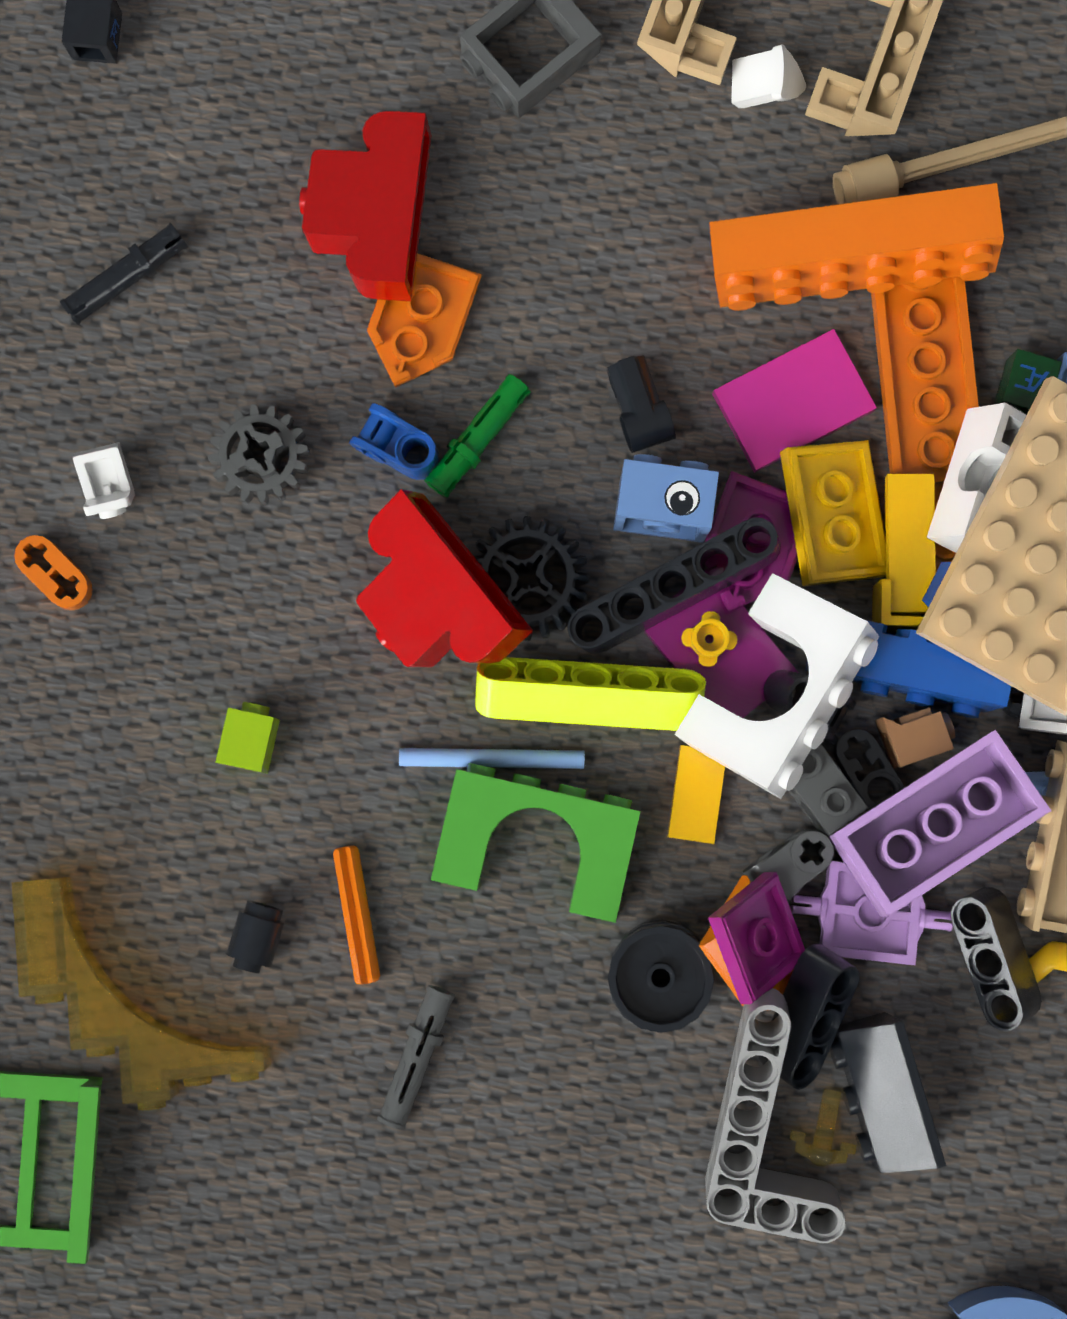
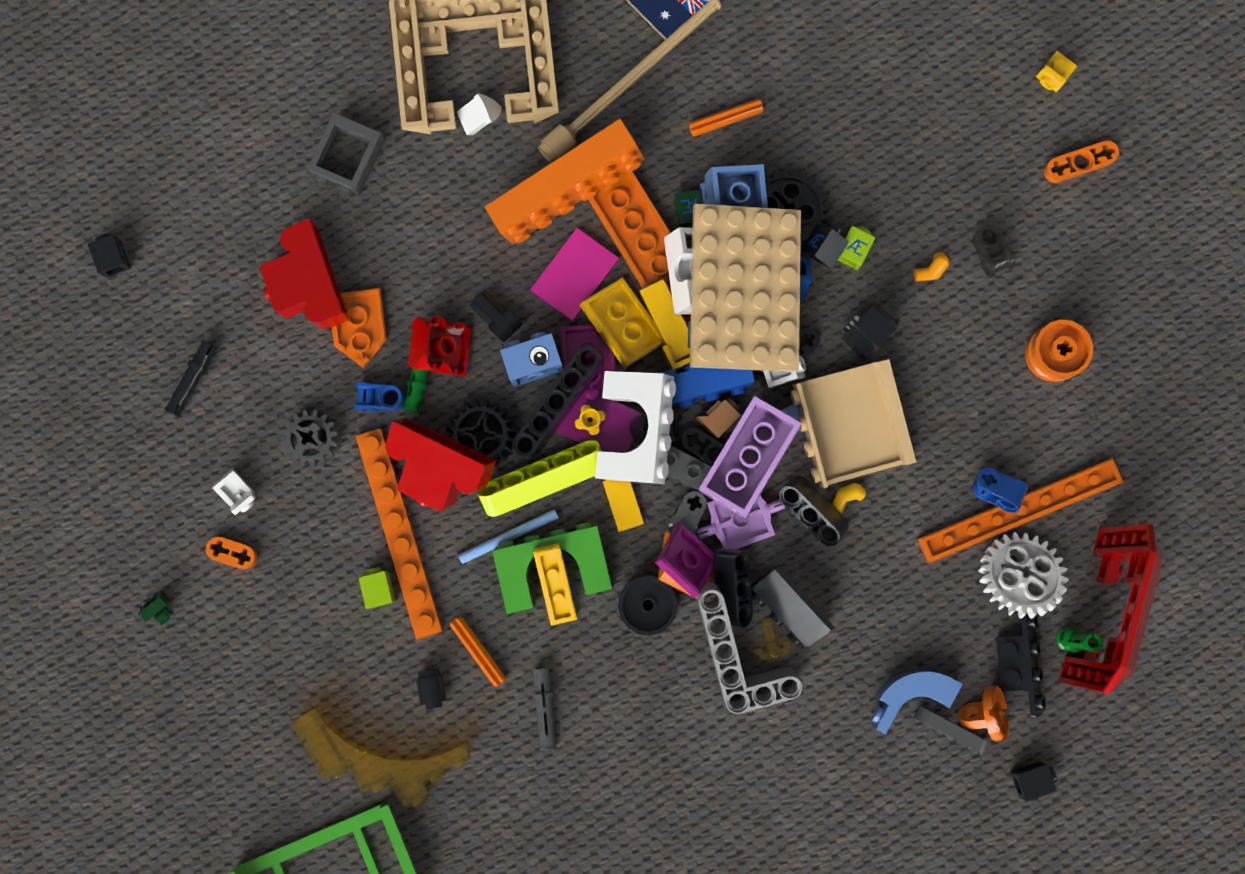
camera: 30 degrees left, 0 degrees up
(324, 672) = (399, 534): none -> orange plate
(529, 869) = (555, 584): none -> yellow tile
(530, 409) = (439, 346): none -> red slope

